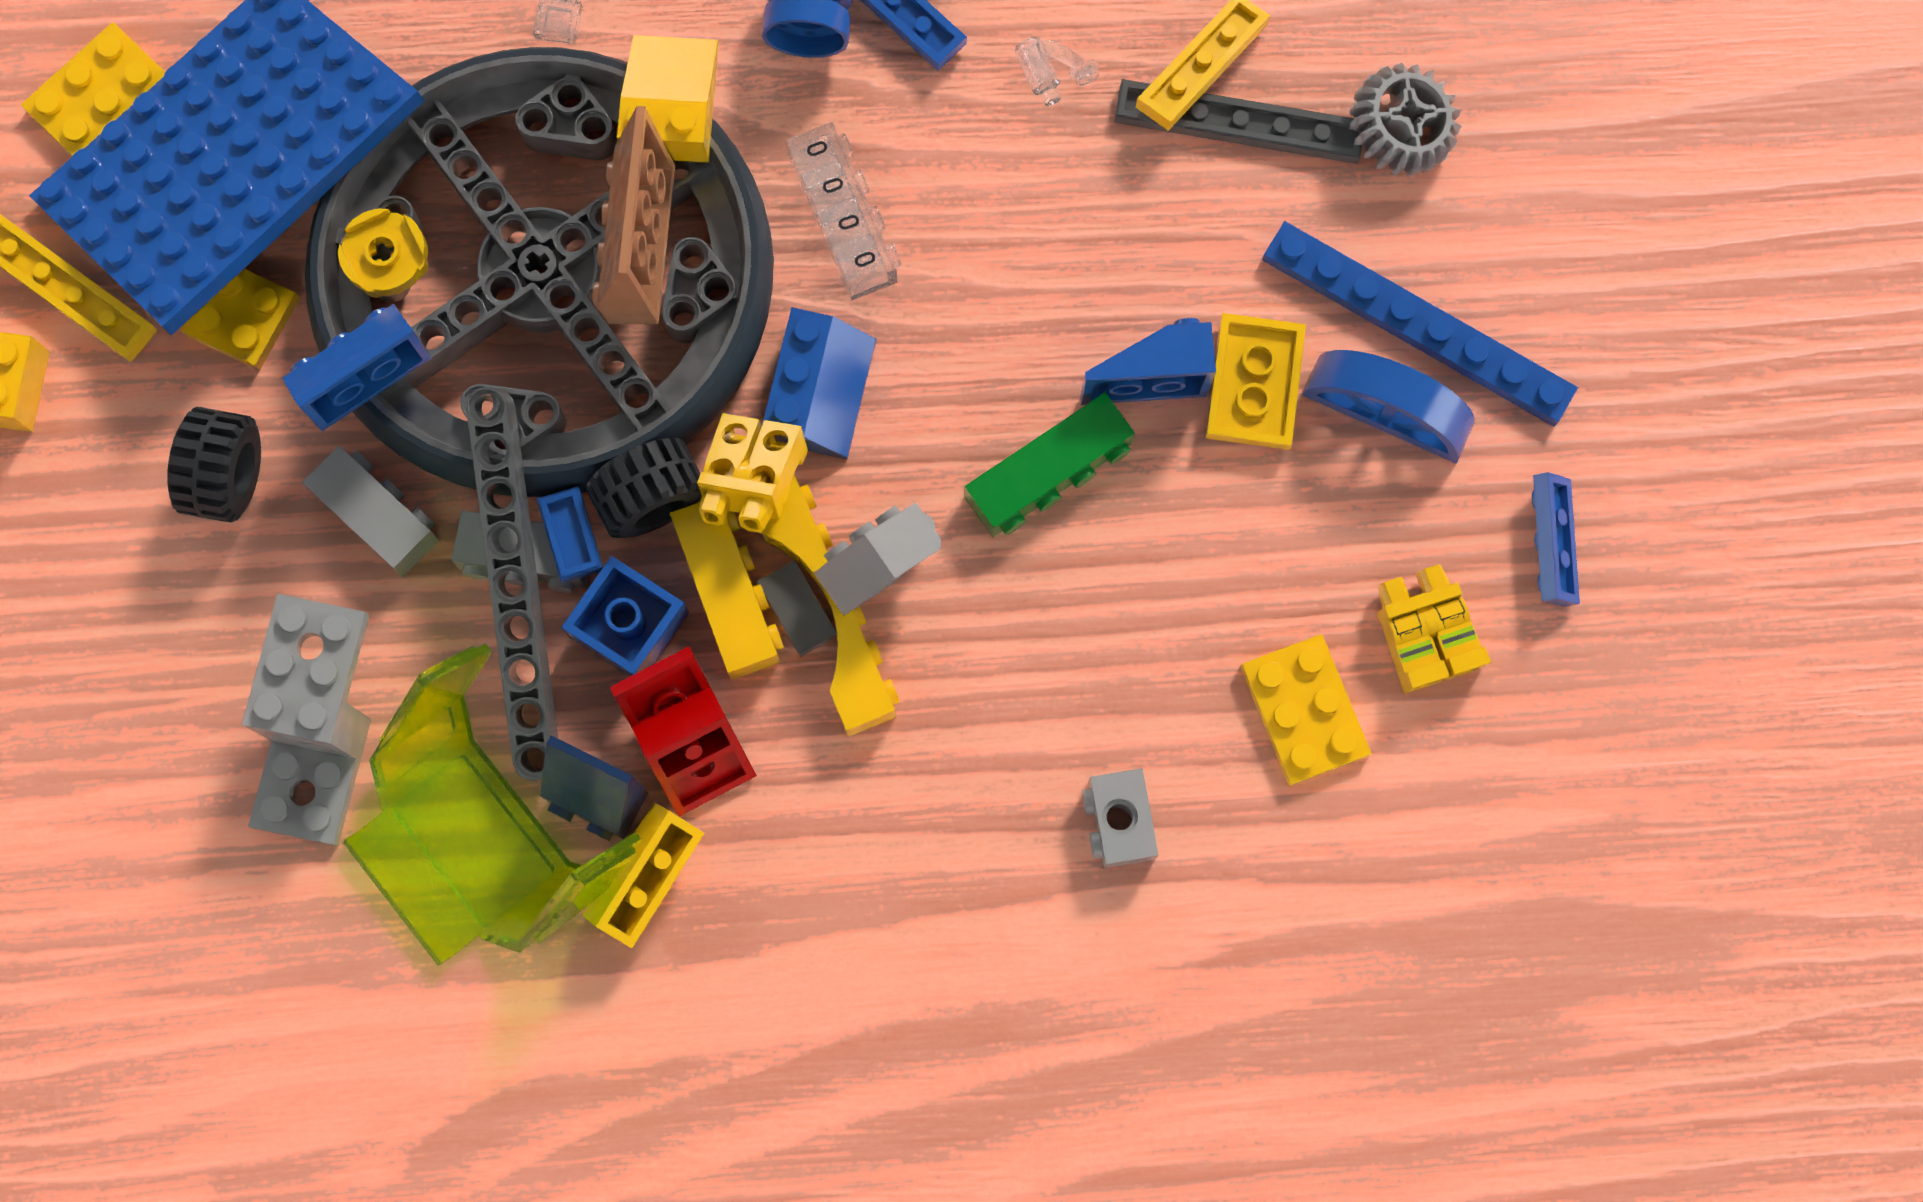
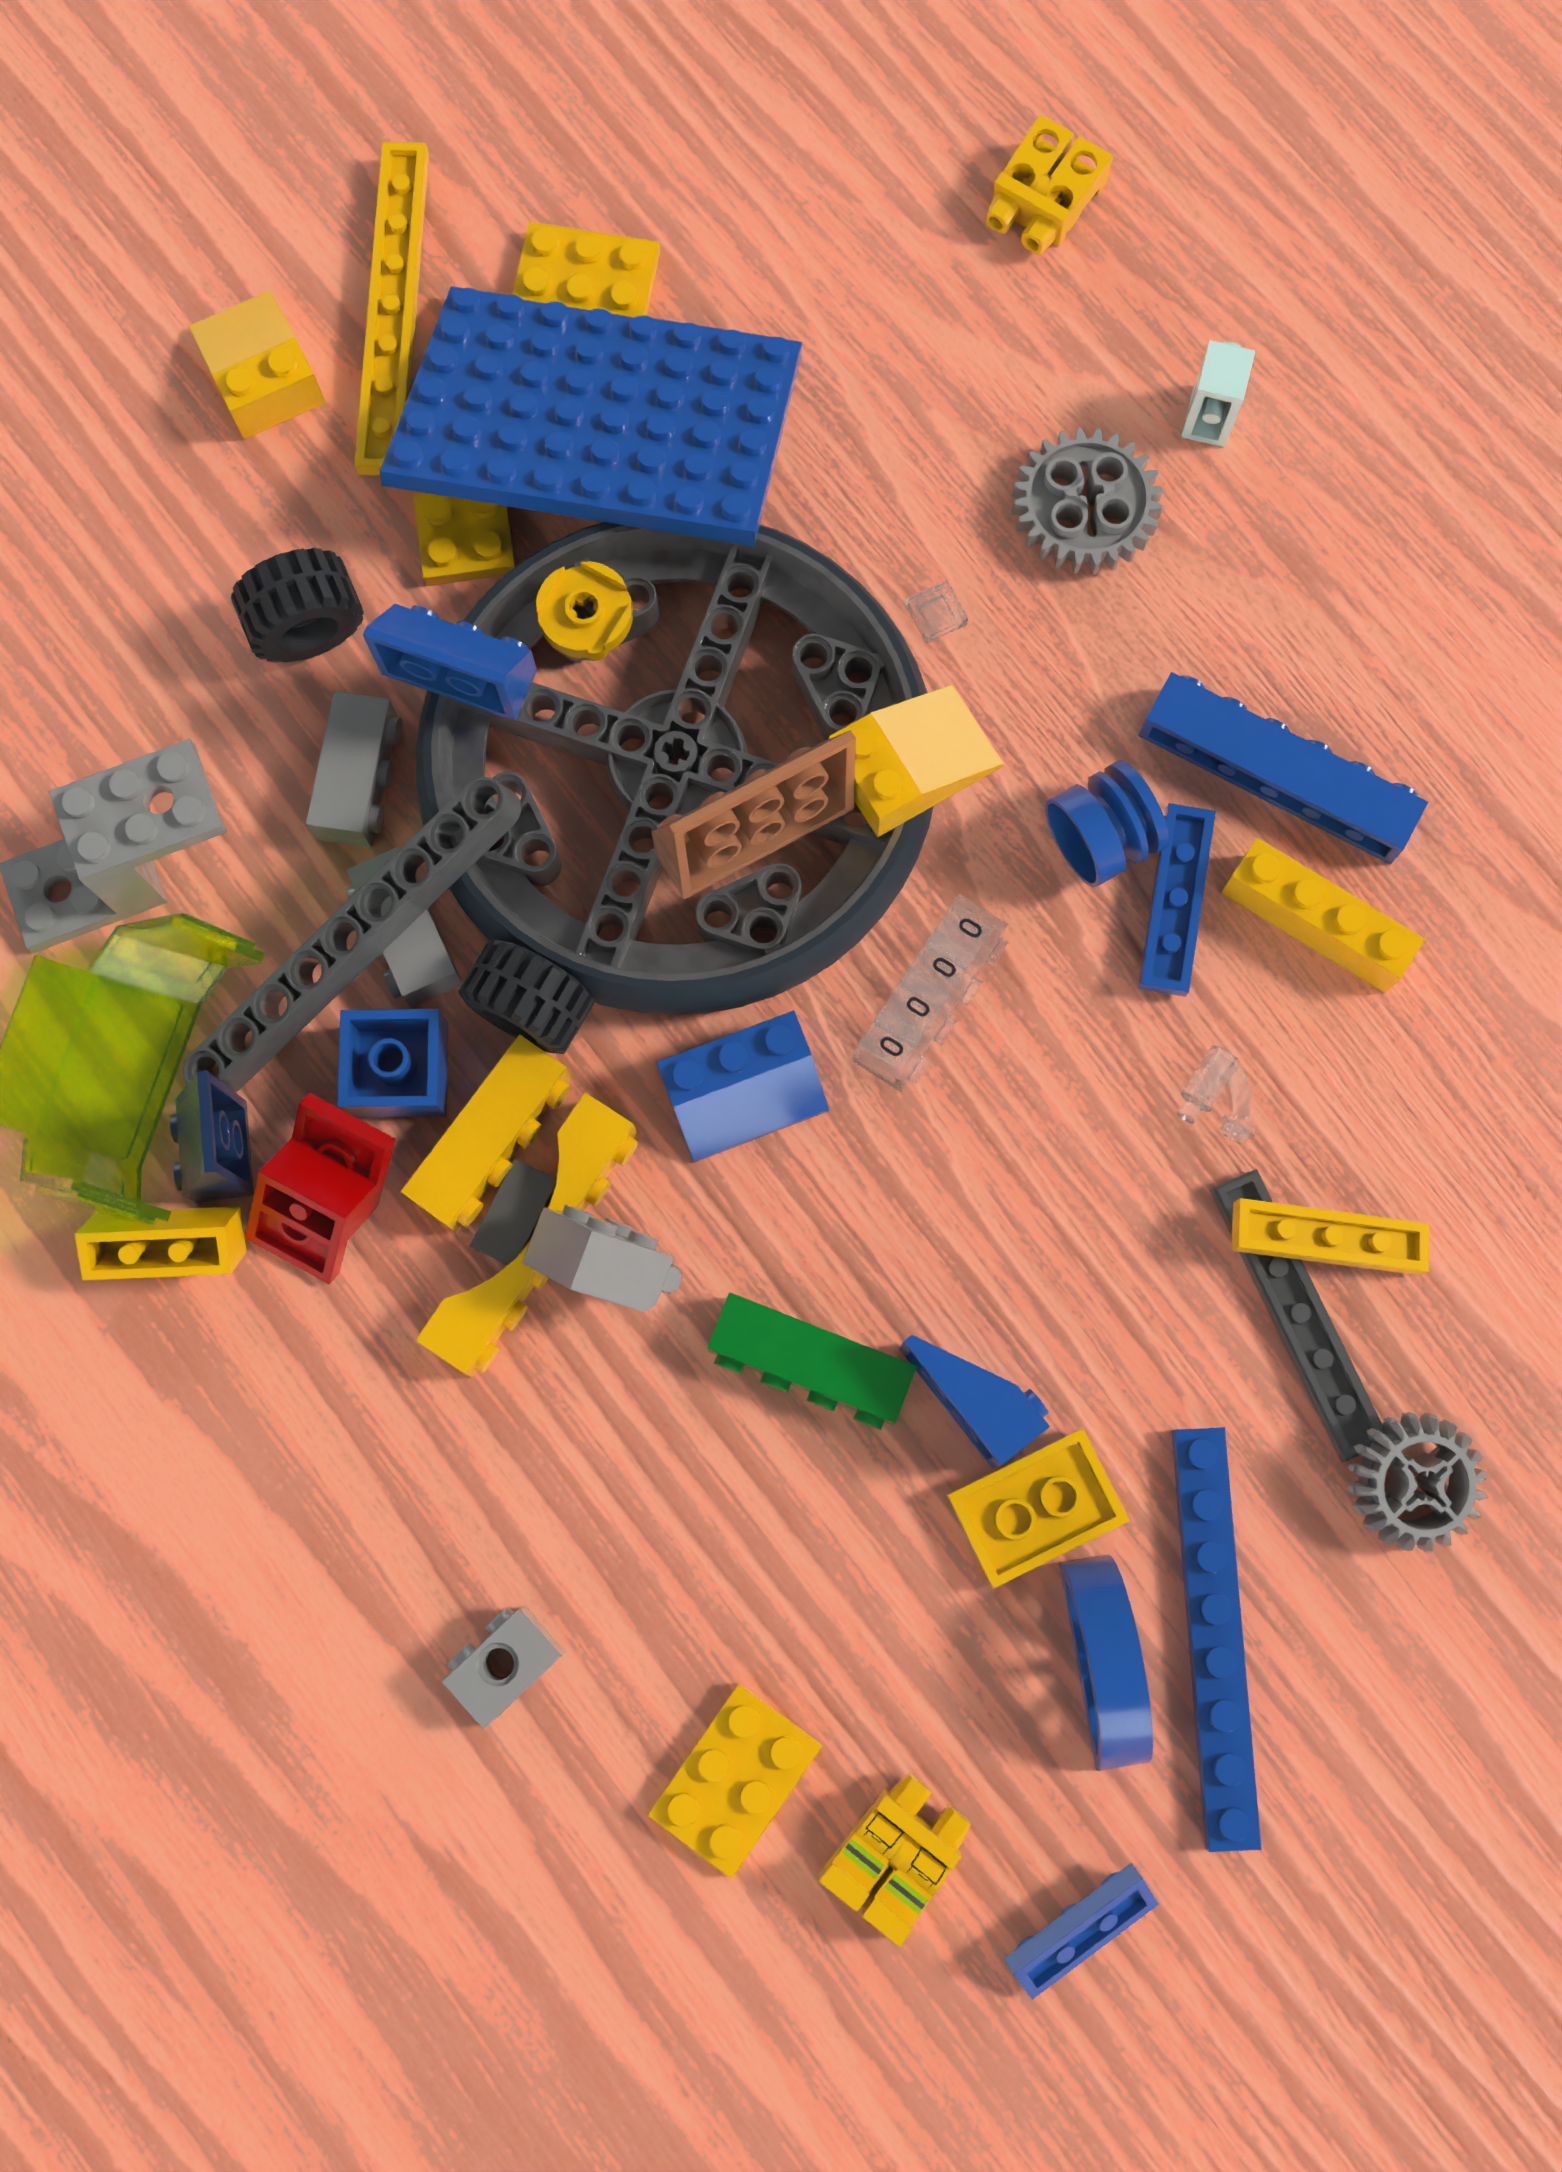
camera: 60 degrees right, 0 degrees up
(570, 534) = (437, 958): blue tile -> none
(749, 471) = (602, 1080): yellow hips -> none

